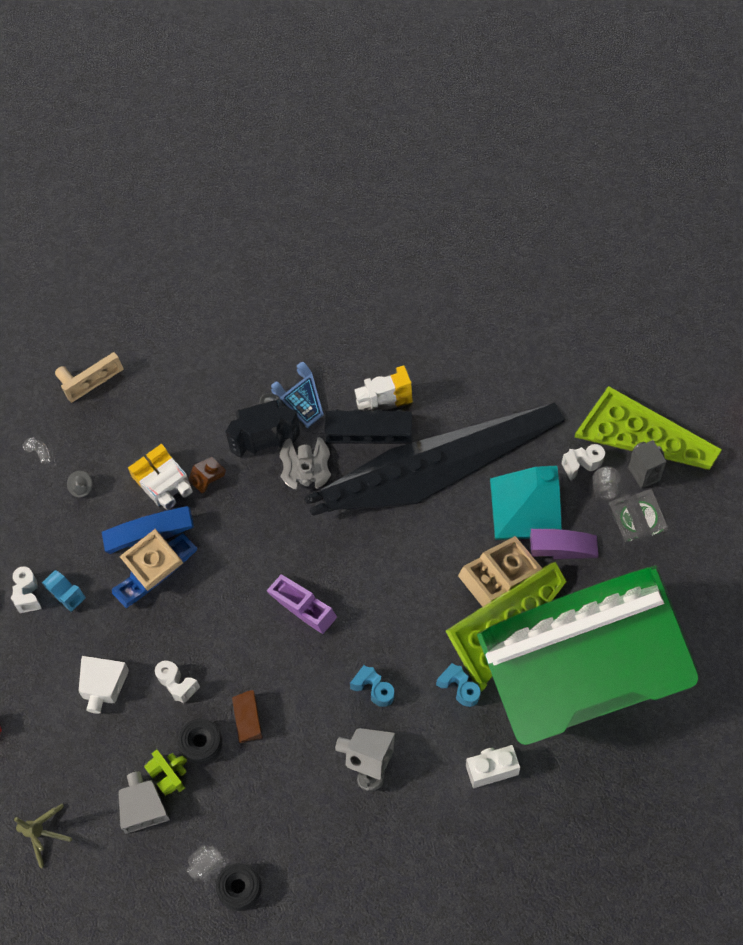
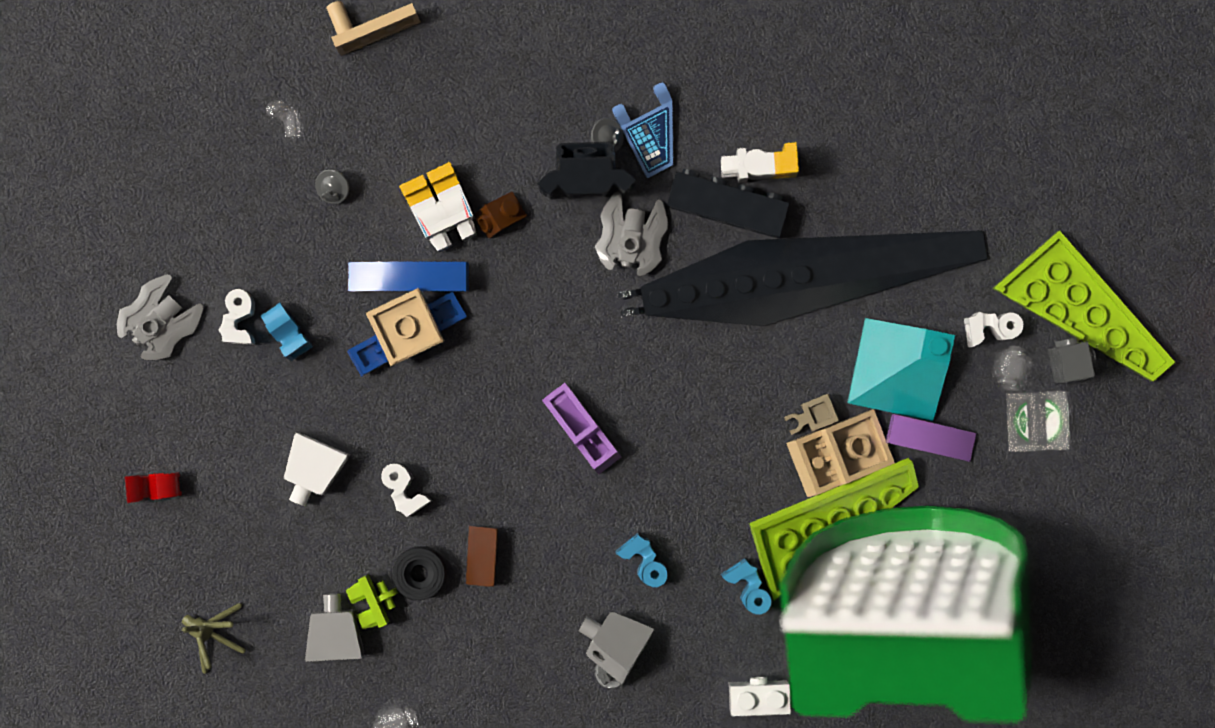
camera: 15 degrees right, 25 degrees up
(472, 549) = (816, 413): none -> dark tan plate

